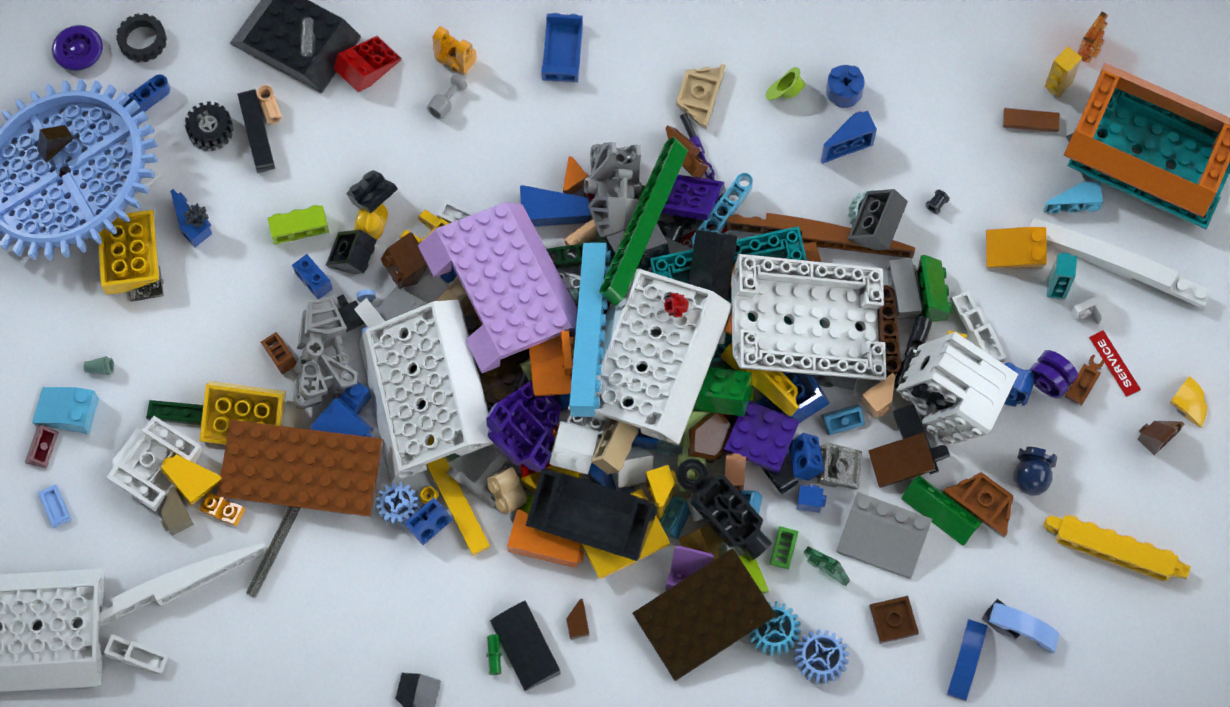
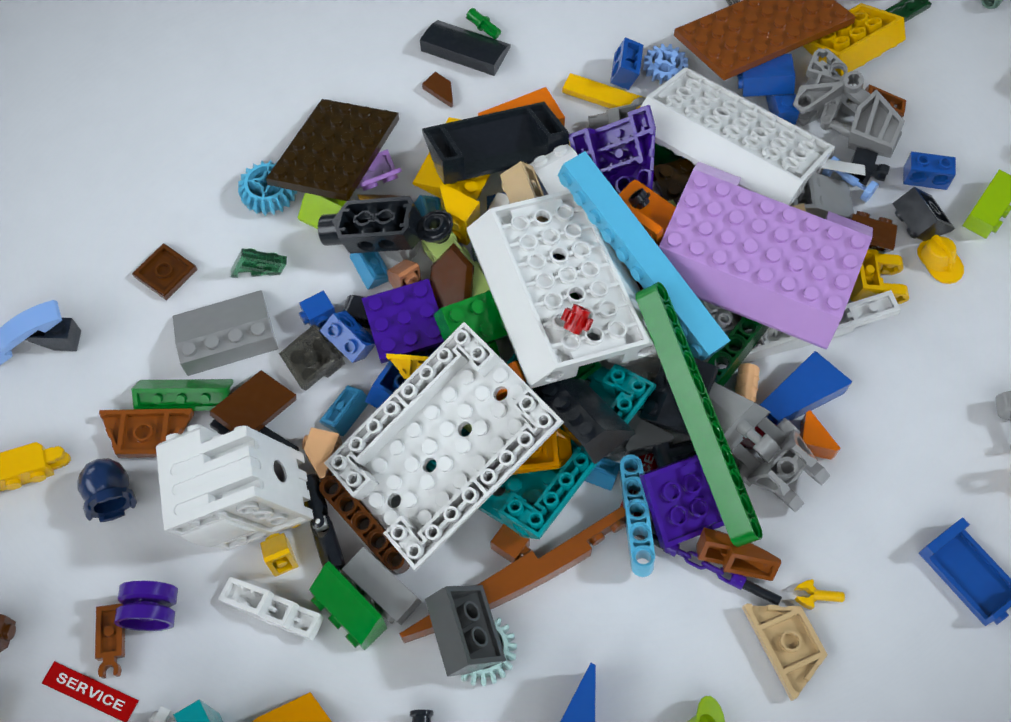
camera: 140 degrees right, 5 degrees down
(371, 191) = (971, 273): black plate -> none
(428, 490) = (647, 87): yellow plate -> none
(507, 490) = (582, 118): tan brick -> none
(552, 375) = (639, 198): none -> black plate
(664, 104) = (821, 595): none -> yellow bar
(782, 530) = (313, 257): bright green slope -> none
(814, 660) = (209, 201): light blue gear -> none
(967, 660) = (70, 286): blue slope -> none
(1021, 388) = (184, 563): blue brick -> none

